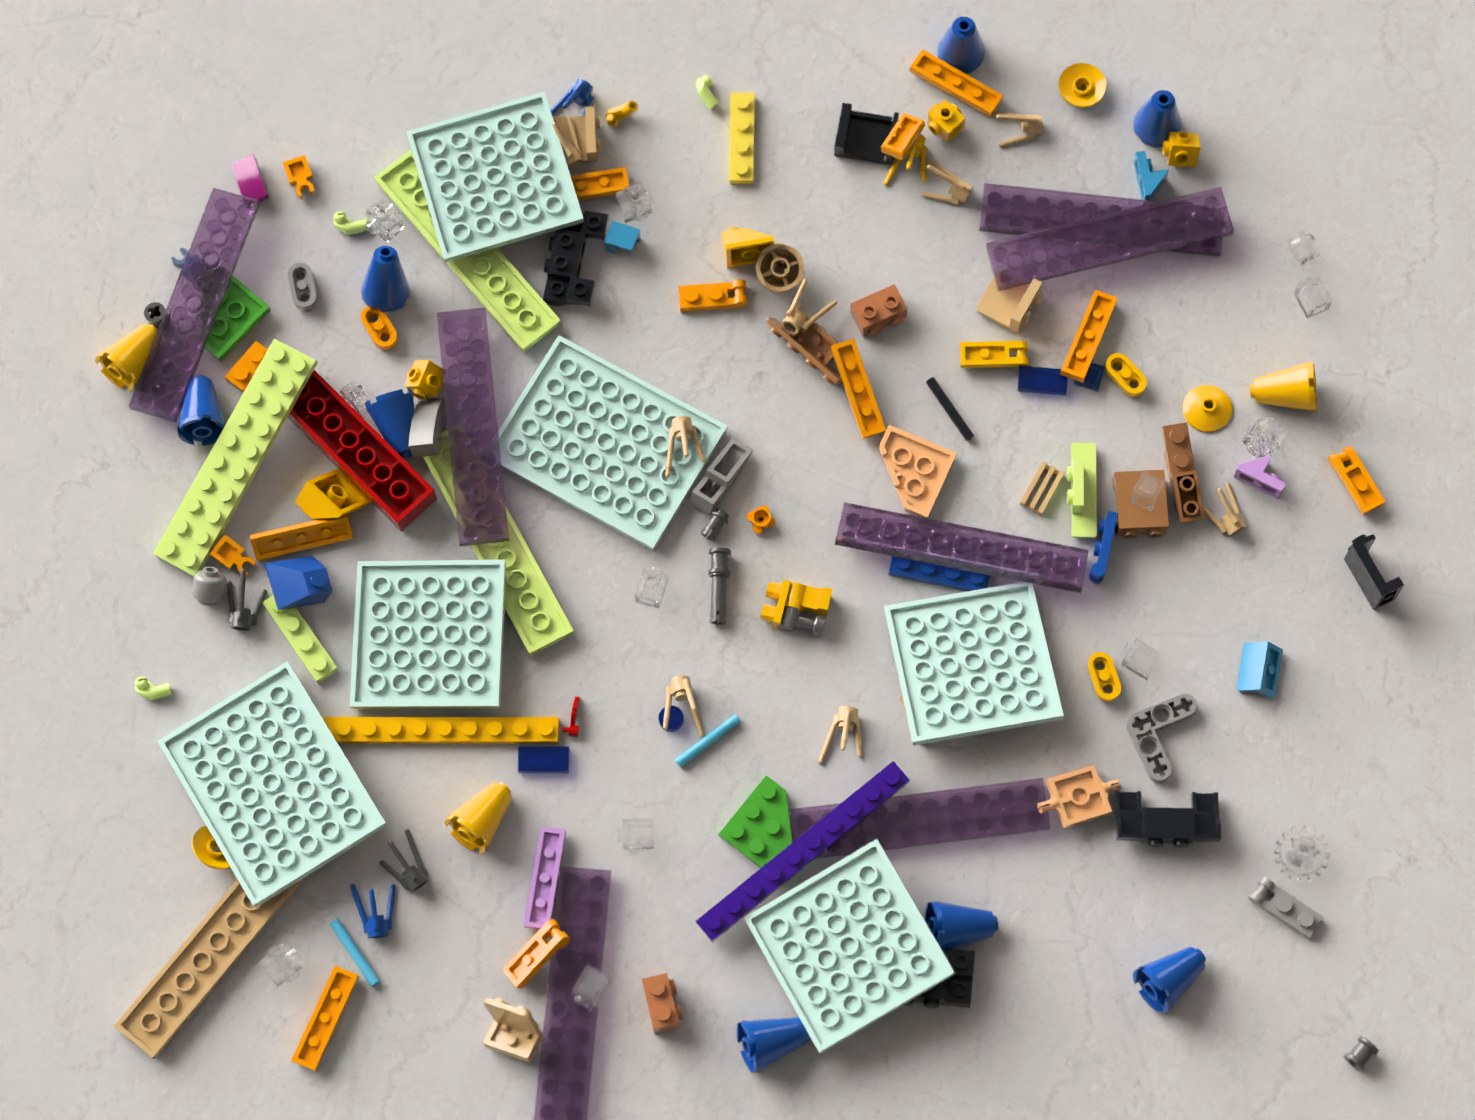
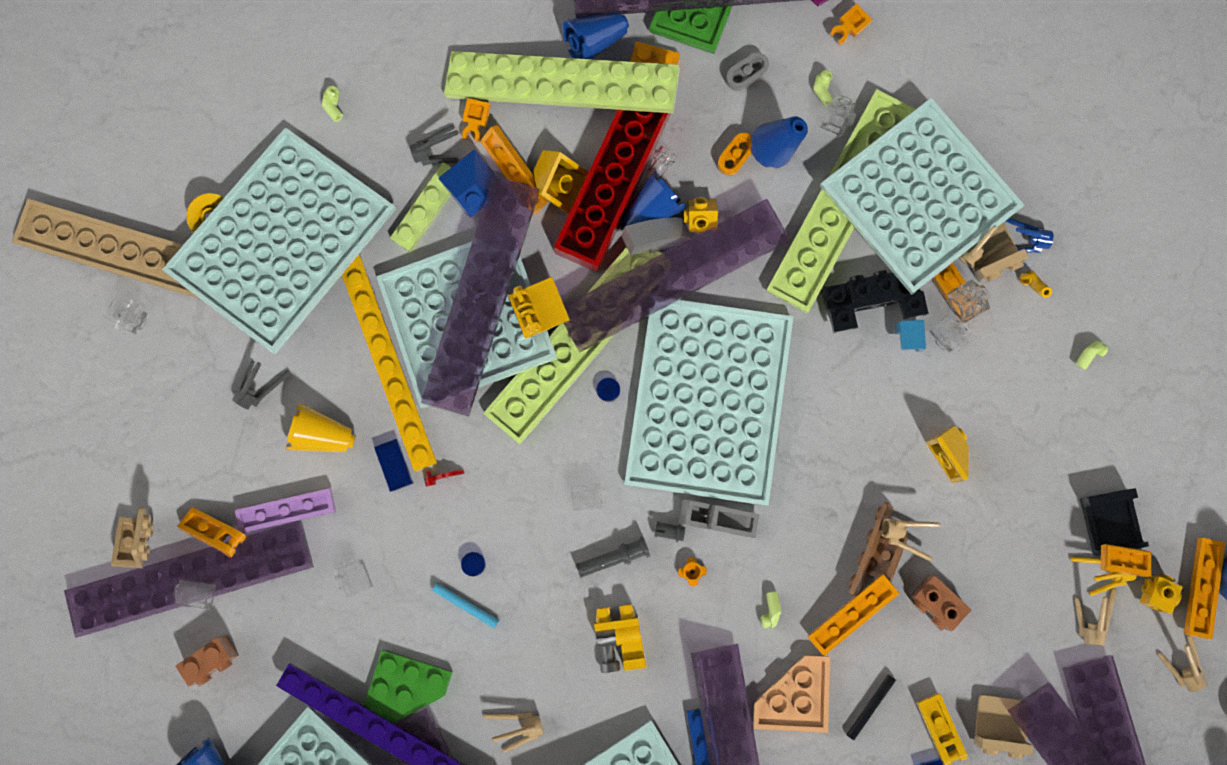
camera: 70 degrees right, 10 degrees up
(208, 586) = (437, 110): light grey head -> none
(325, 1018) = (96, 372): light orange plate -> none
(354, 952) = (164, 373): medium azure bar -> none
(377, 926) = (192, 380): blue plant -> none
(415, 607) = (480, 297): none -> clear purple plate
(450, 557) = (538, 307): none -> yellow hinge
(555, 531) = (608, 389): none -> clear blue tile
(611, 174) = (969, 300): none -> clear brick
(682, 431) = (745, 466): tan plant -> none
(682, 691) = (501, 564): tan plant -> none
(712, 296) = (890, 440): light orange plate -> none
(741, 138) = (1059, 405): light yellow plate -> none
(779, 268) = (941, 495): tan cylinder -> none
(834, 464) = (774, 611): none -> yellowish green arm

